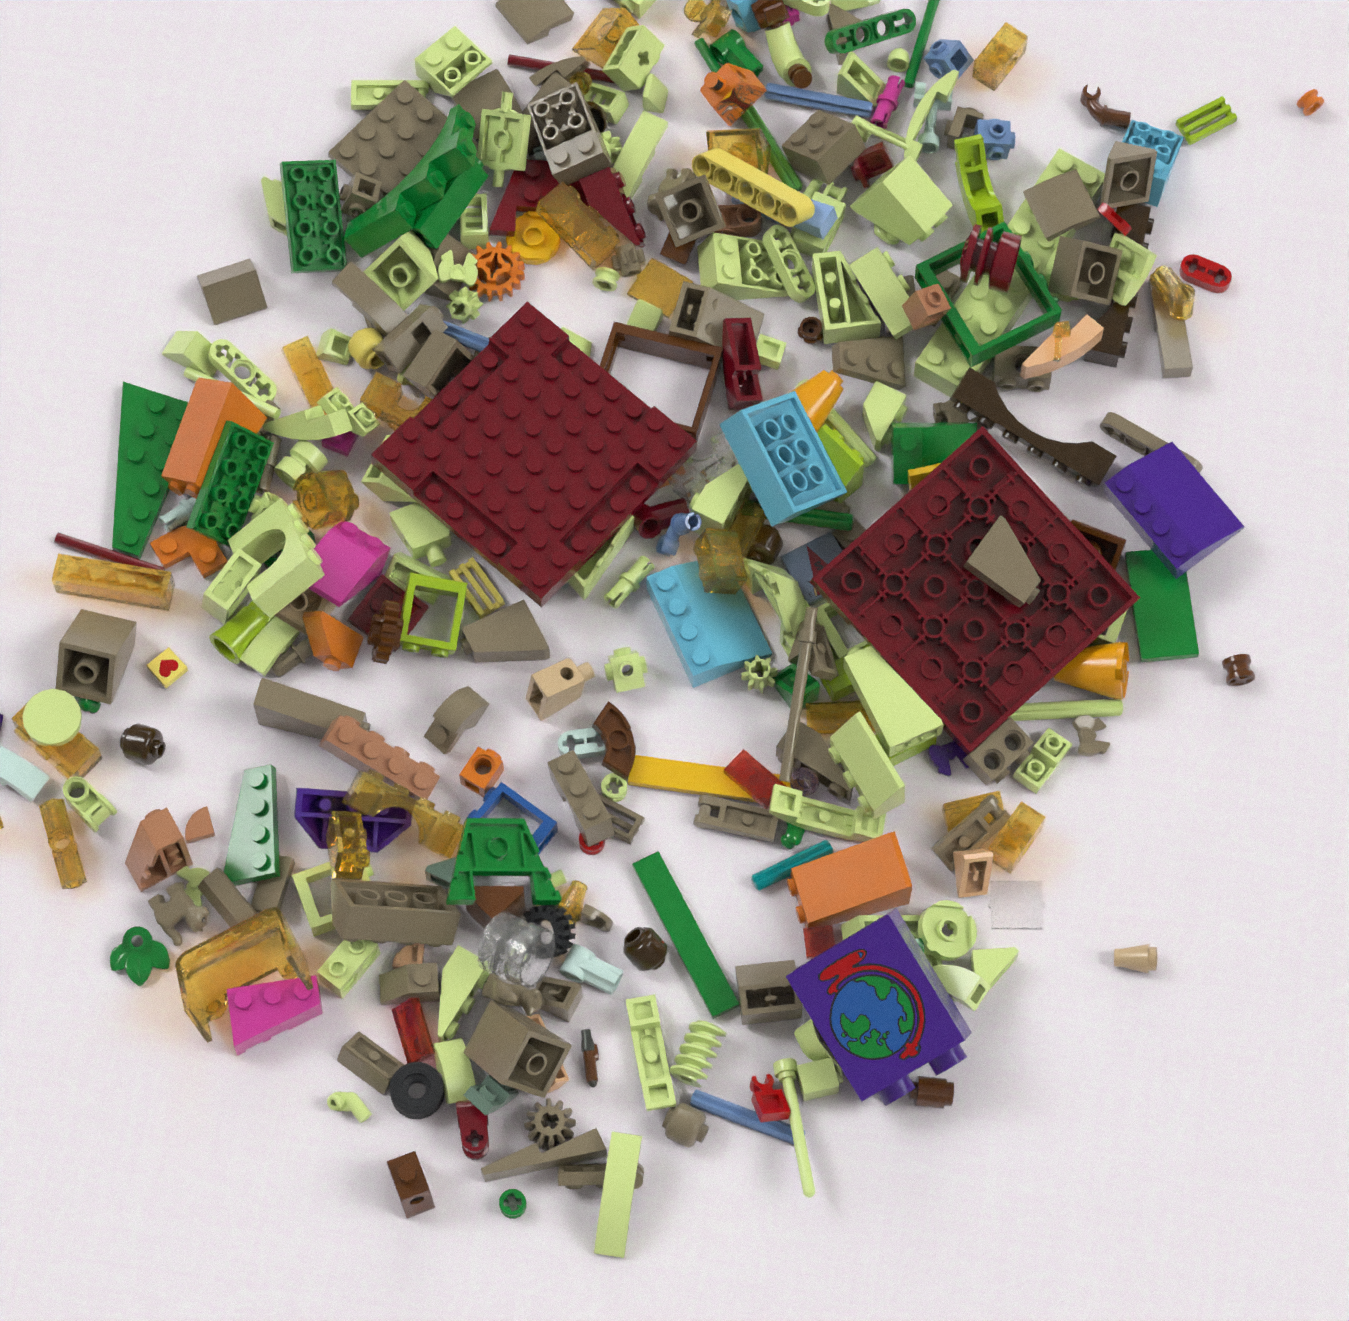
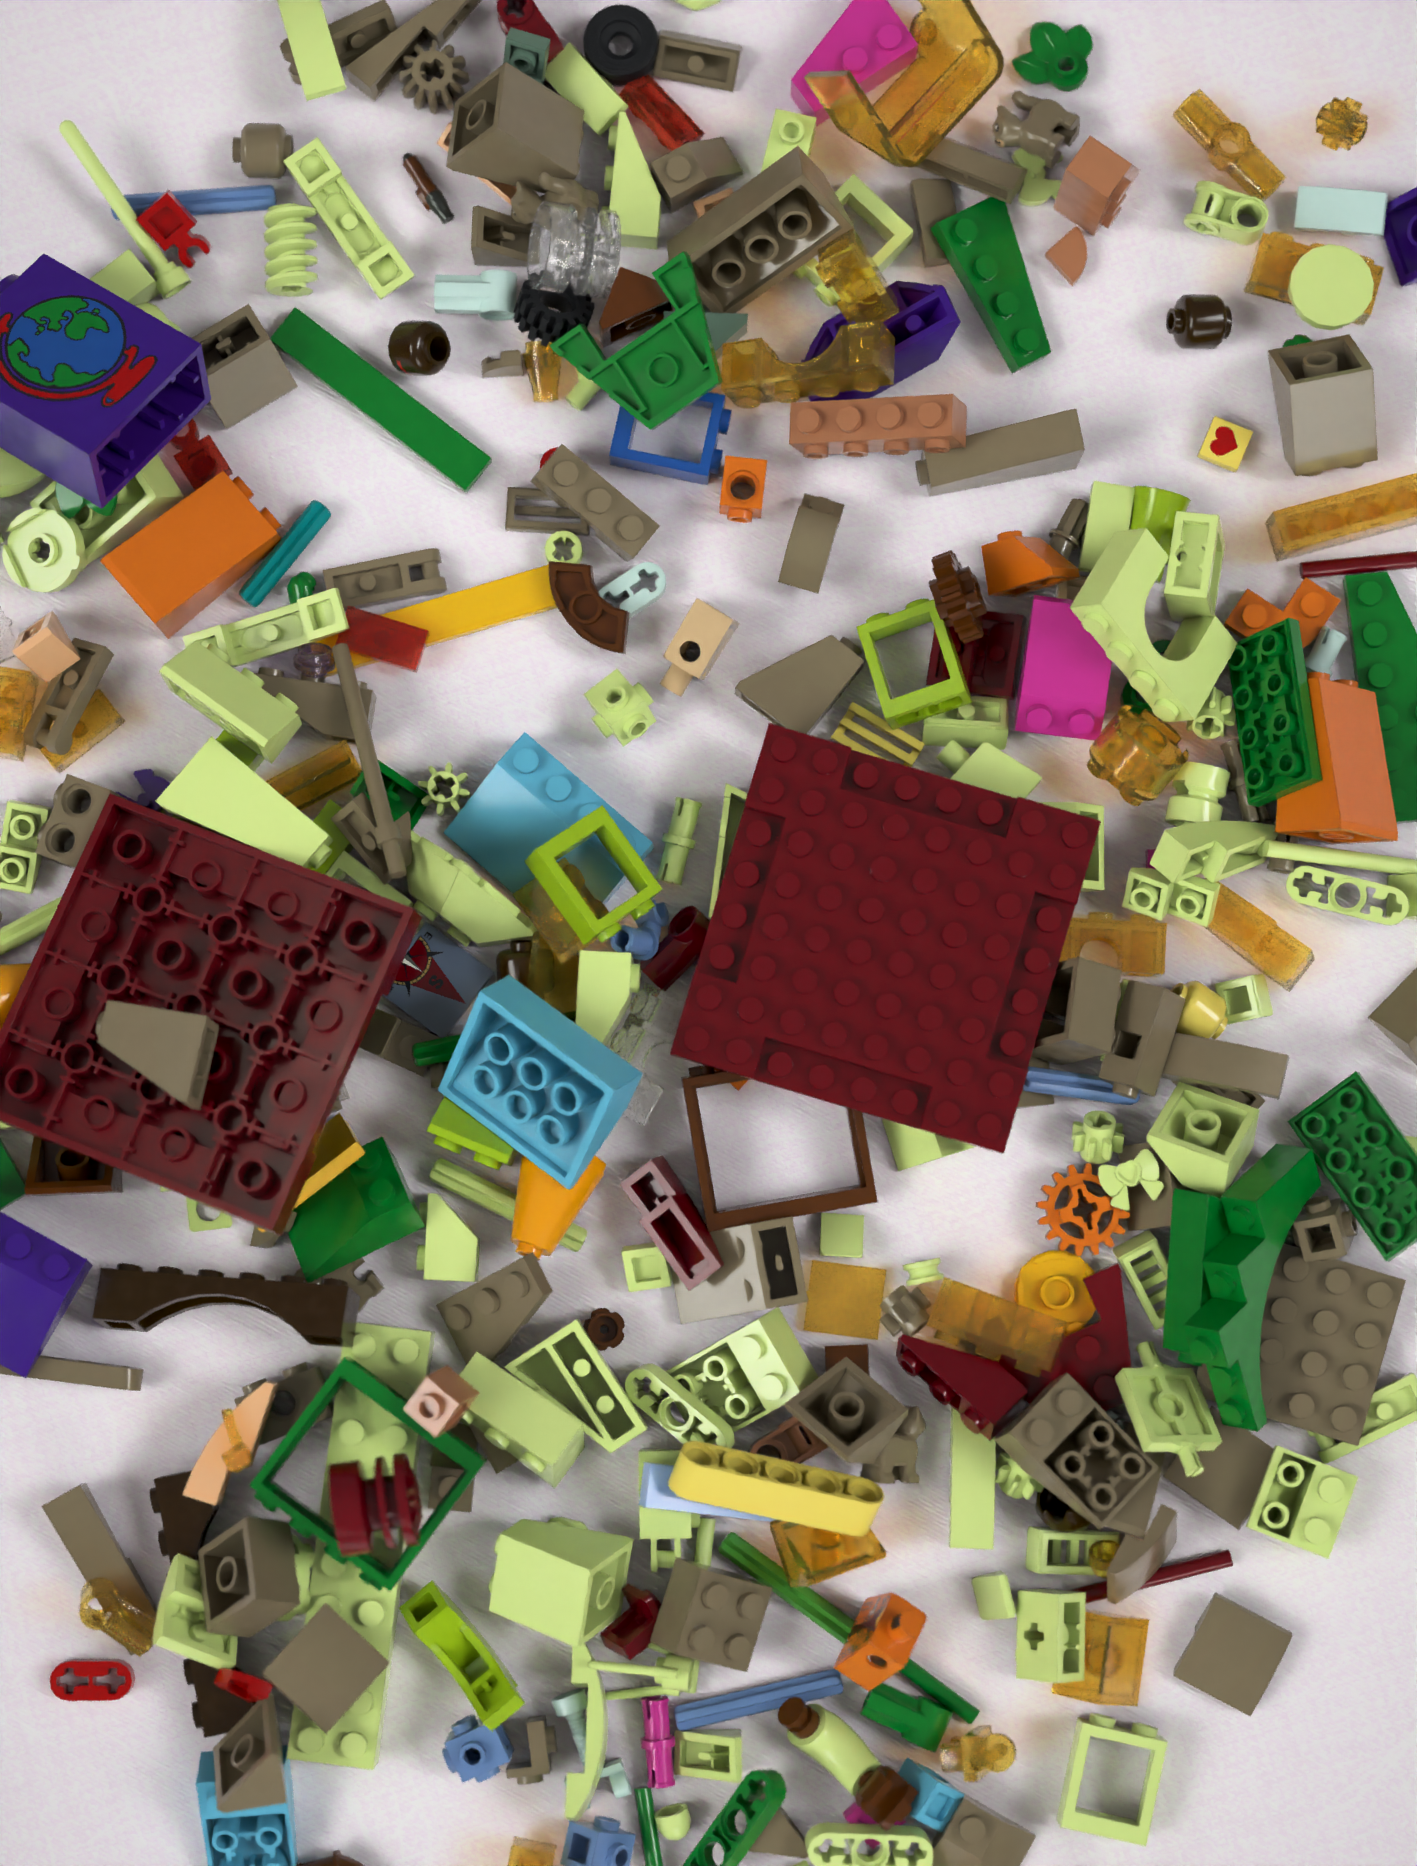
camera: 155 degrees right, 15 degrees up
(698, 584) = (566, 897): none -> lime window

